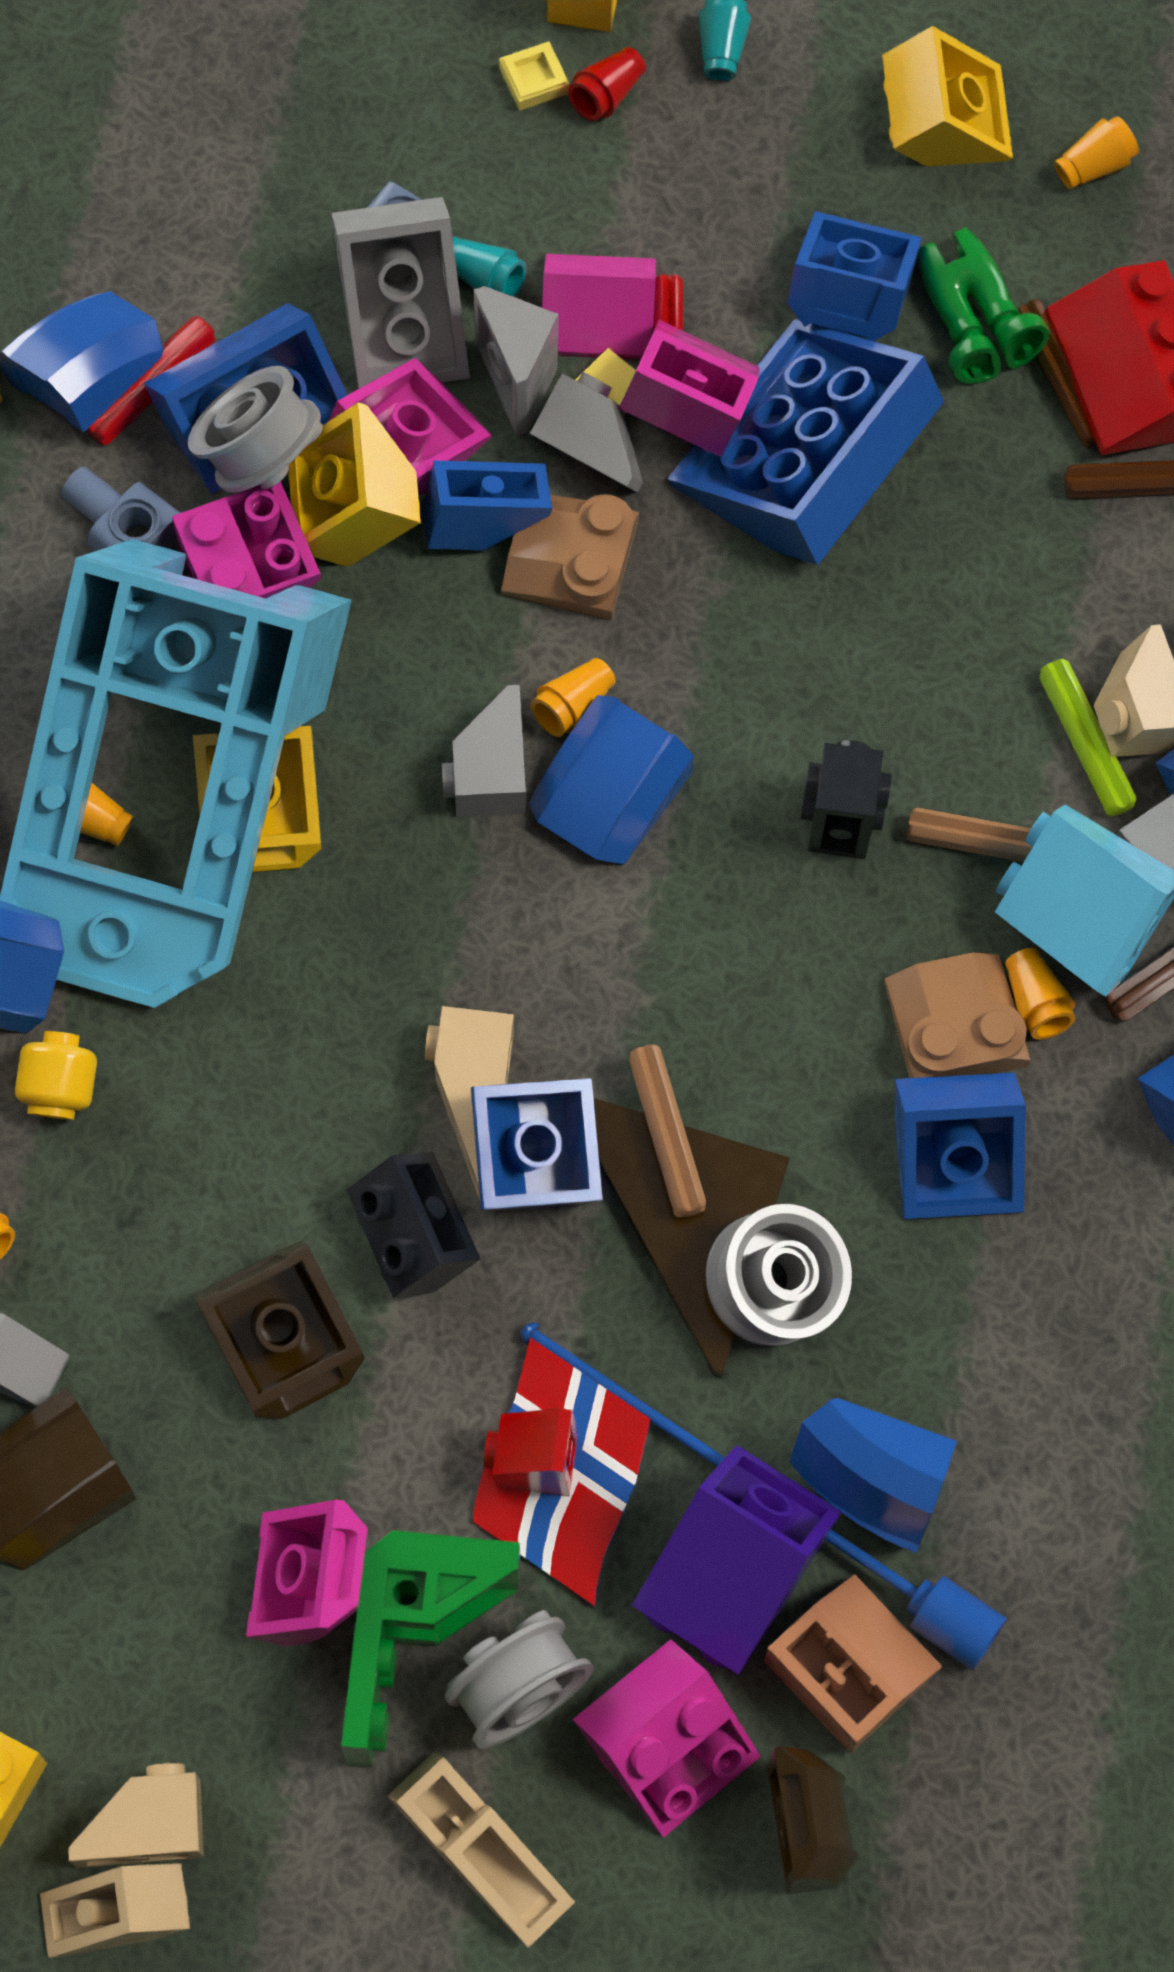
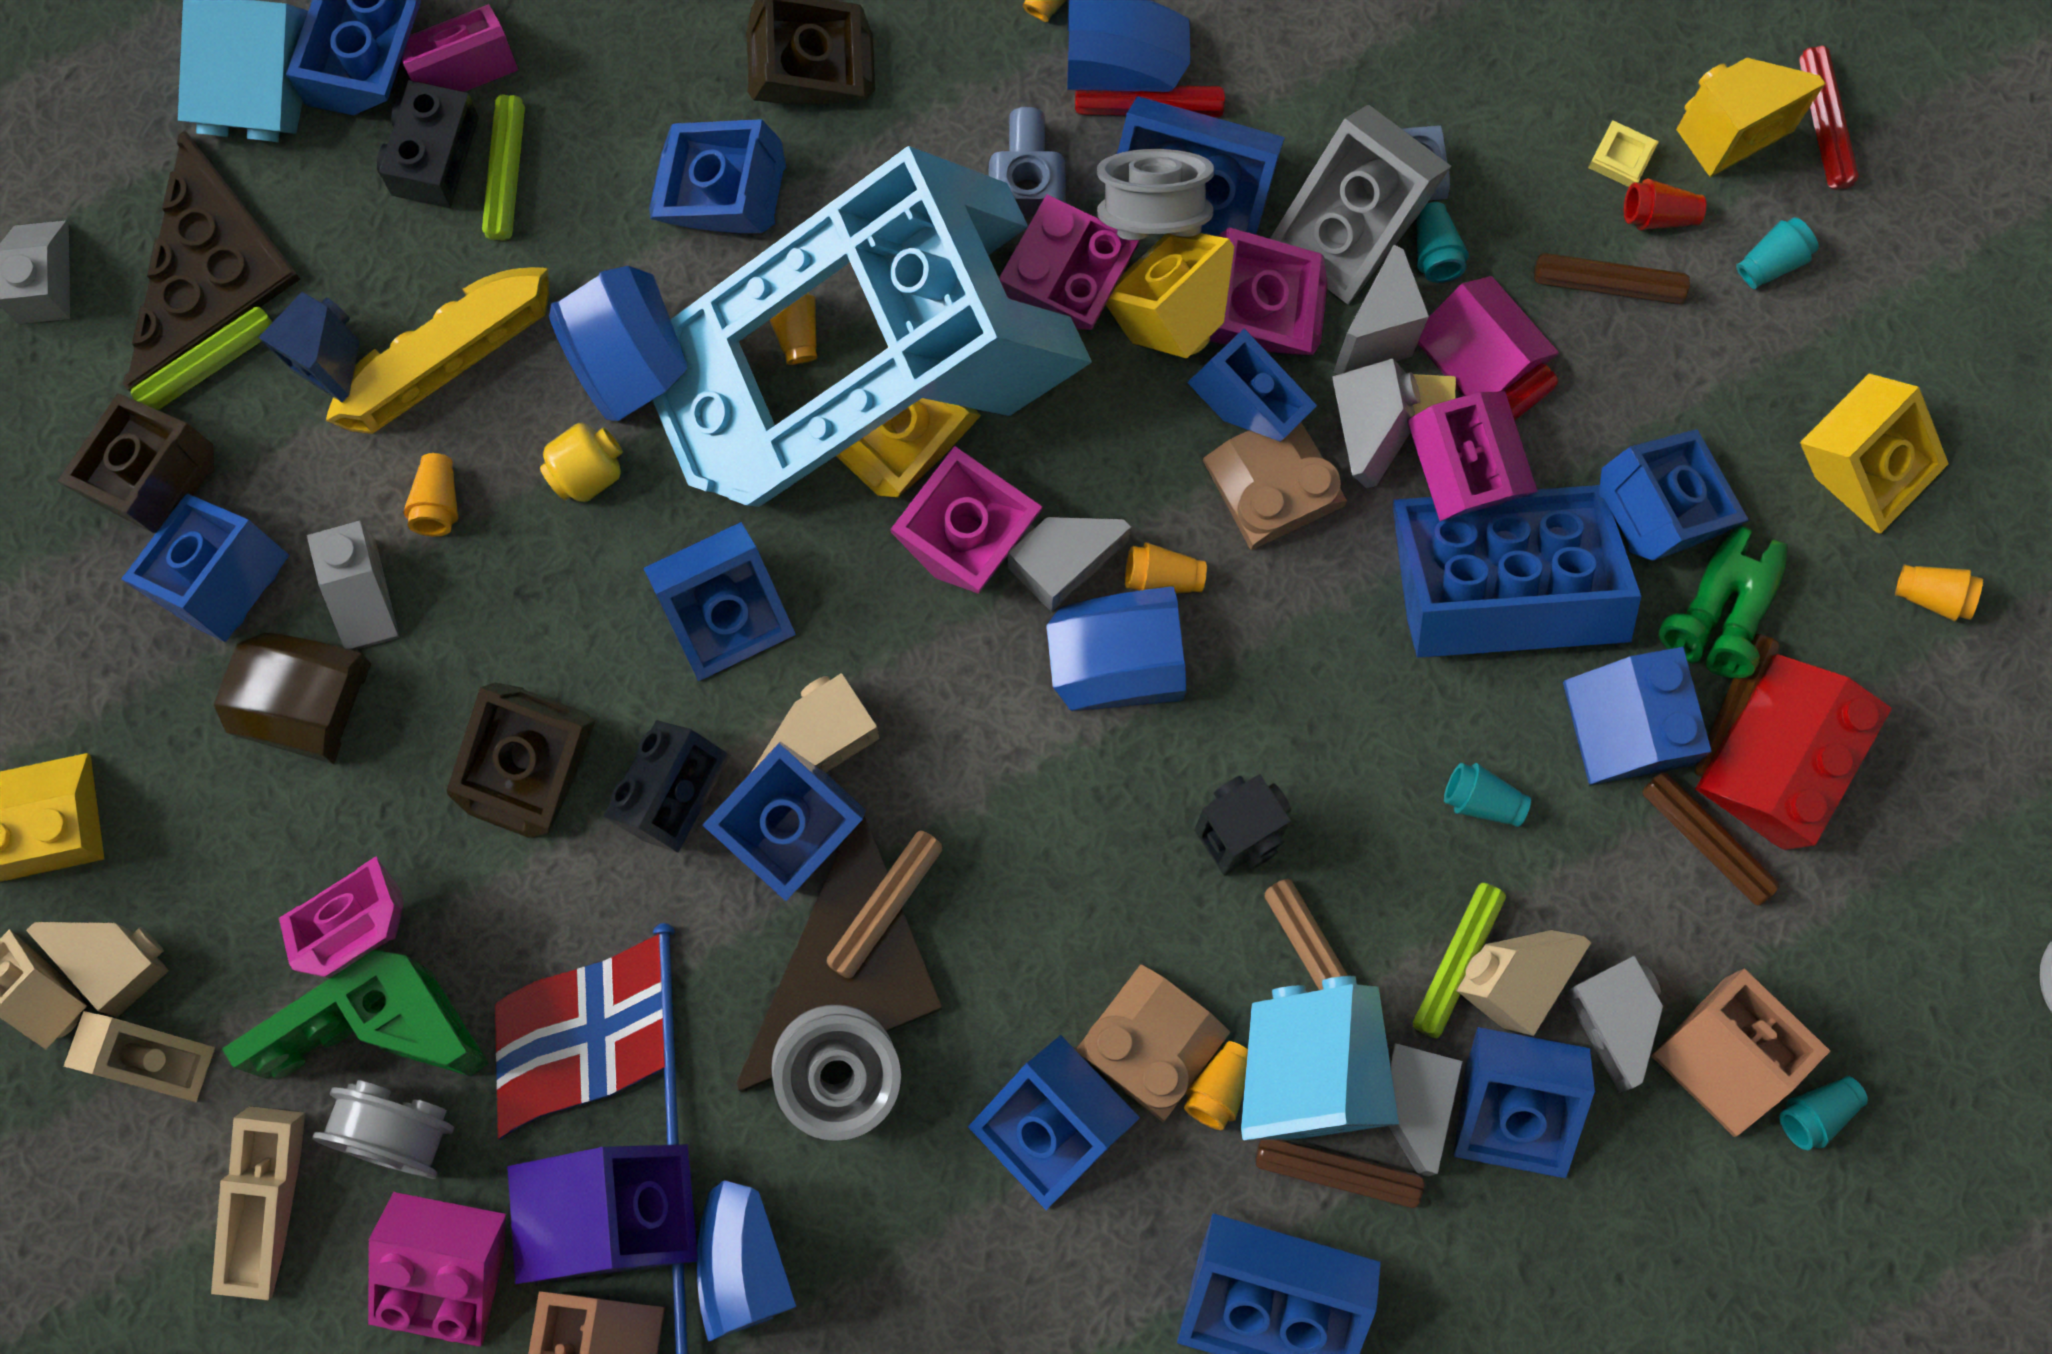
camera: 50 degrees right, 5 degrees up
(261, 1855) = (139, 1056): none -> tan slope
(282, 1059) = (720, 601): none -> blue slope
(399, 809) = (964, 522): none -> dark pink slope
(533, 1451) = (563, 1007): red slope -> none
(630, 170) = (1611, 278): none -> reddish brown axle
(972, 609) = (1484, 795): none -> teal cone
(1008, 446) = (1637, 717): none -> slope

